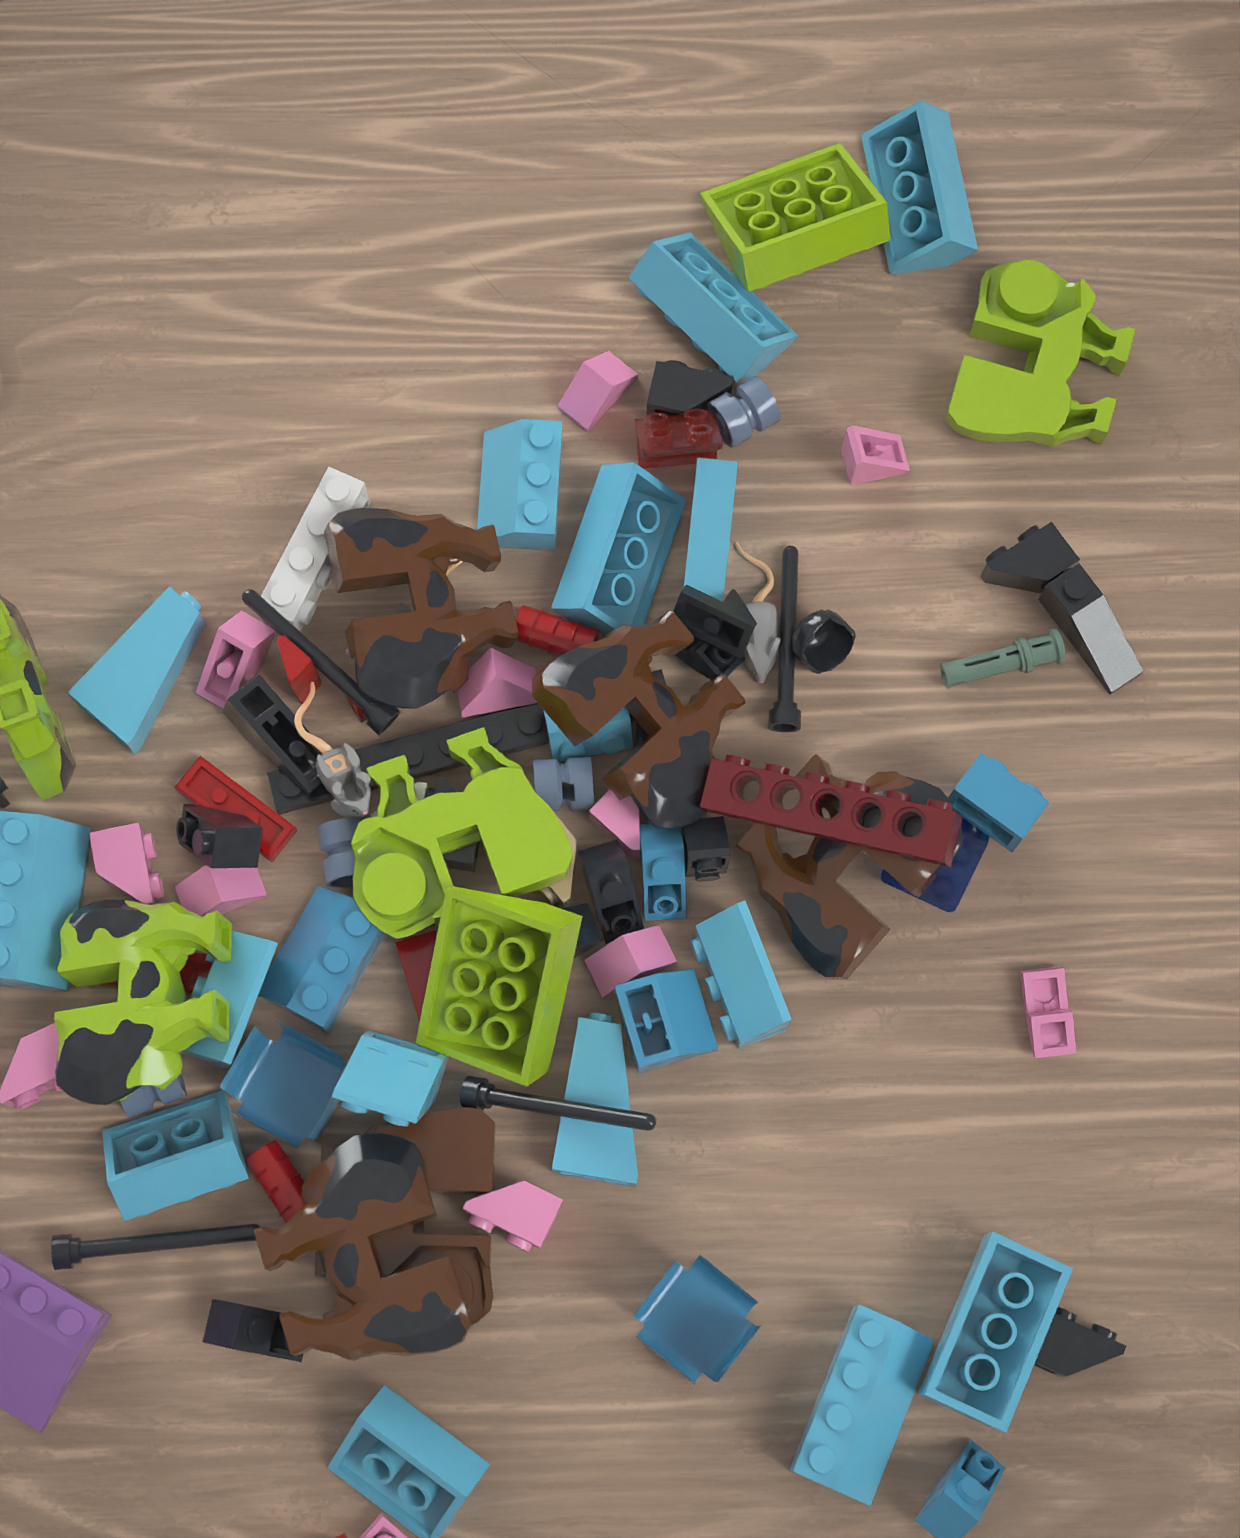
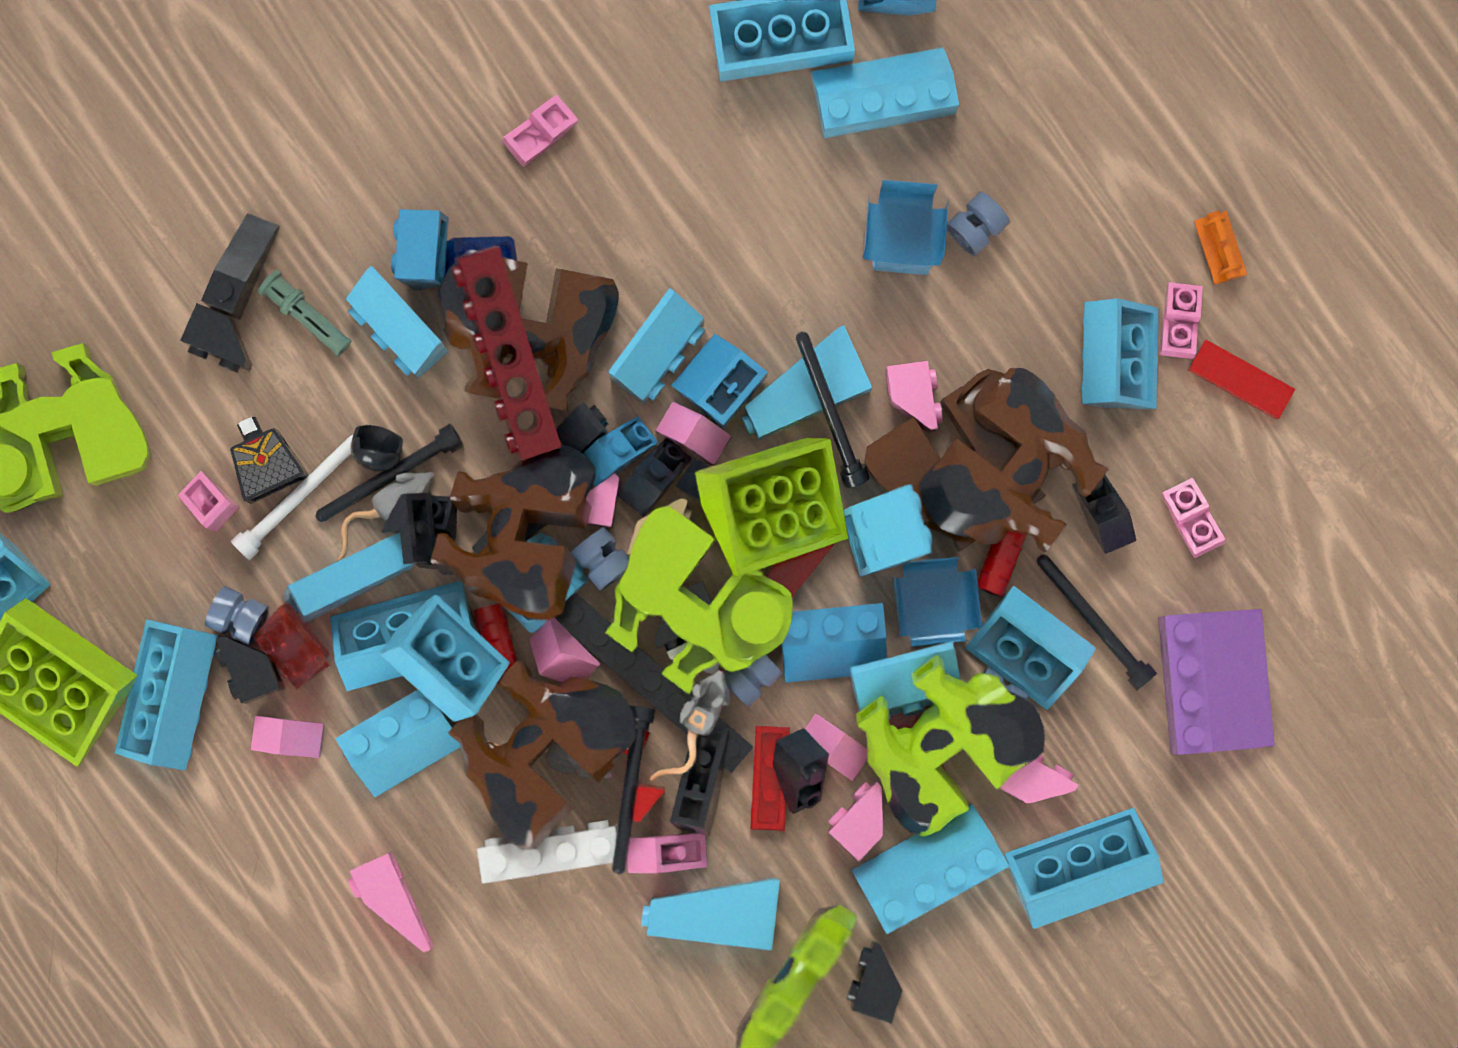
camera: 120 degrees left, 10 degrees up
(185, 1425) = (1193, 518): none -> bright pink slope
(379, 383) = (387, 894): none -> bright pink slope
(564, 563) = (445, 659): none -> medium azure slope
(655, 1421) = (986, 215): none -> sand blue wheel
(809, 468) = (249, 541): none -> white piece
(878, 530) = (264, 462): none -> torso
(935, 736) = (394, 324): none -> medium azure slope

